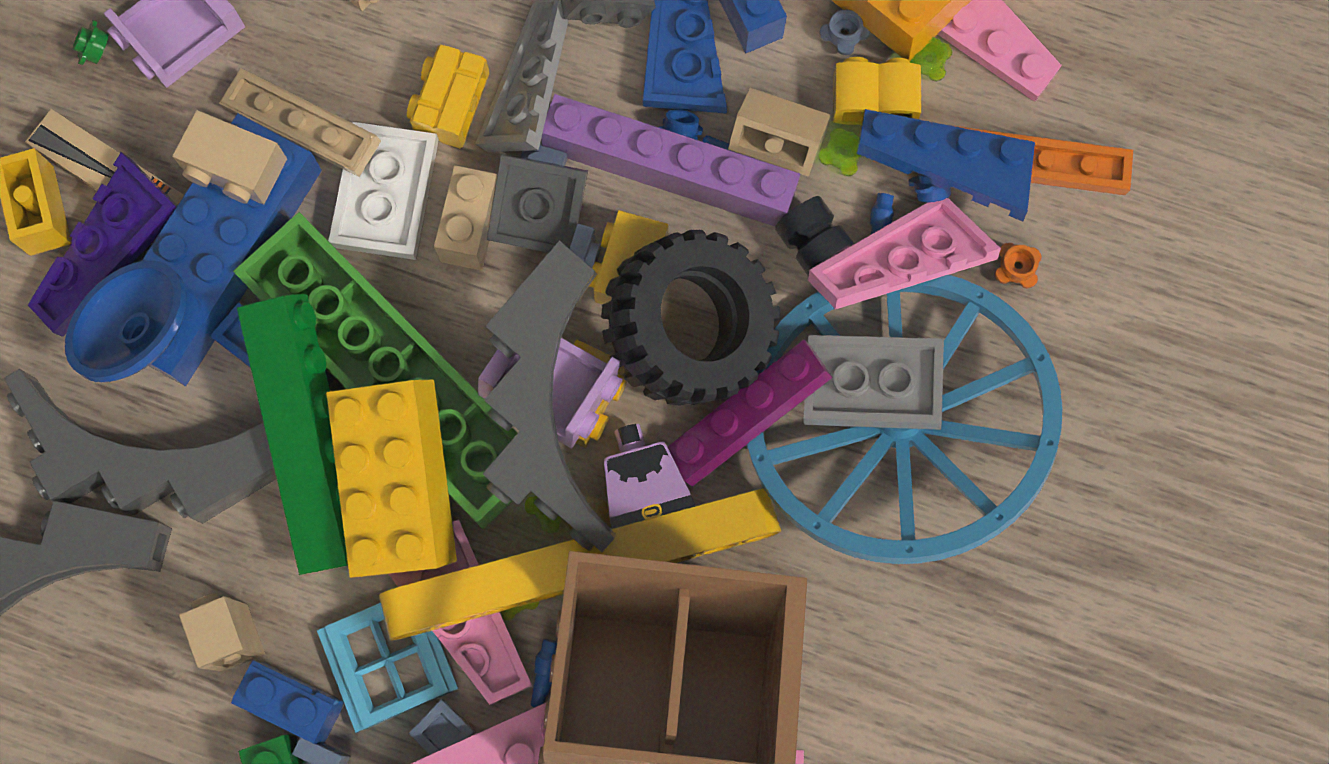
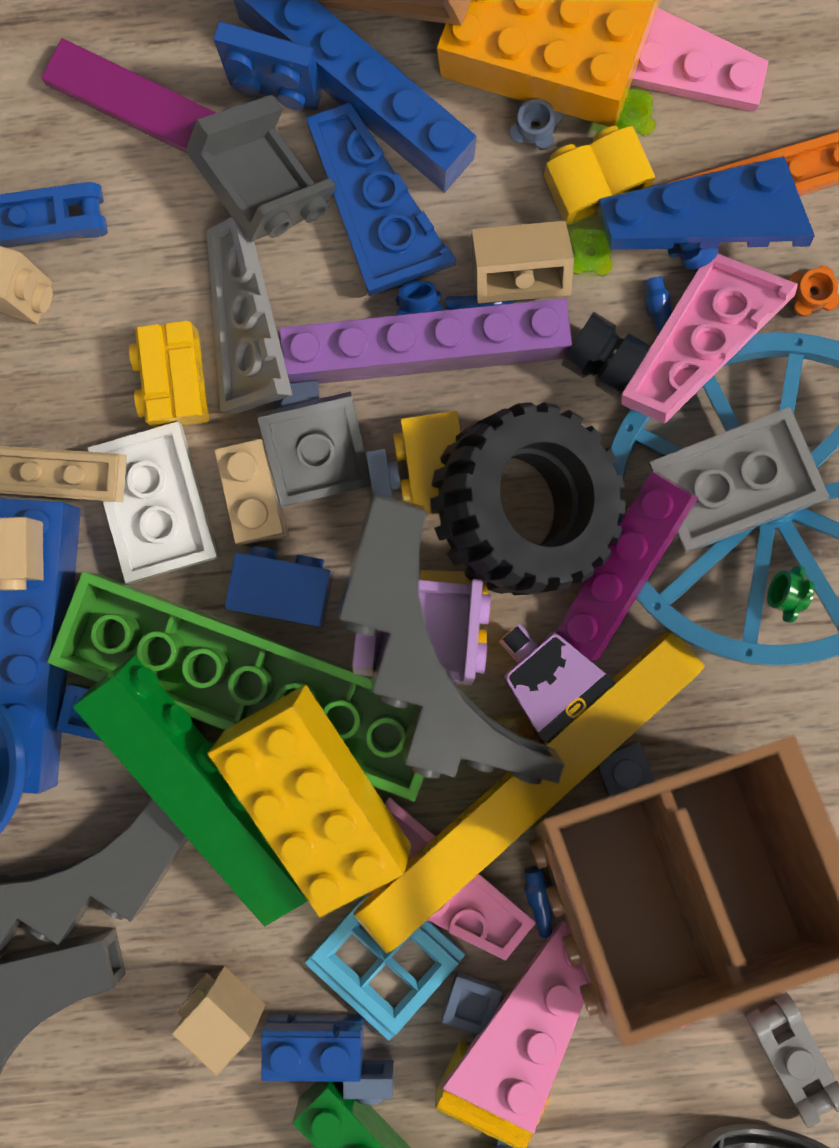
camera: 15 degrees left, 10 degrees up
(451, 303) = (279, 587): none -> blue brick
(875, 493) = (790, 593): none -> green plate

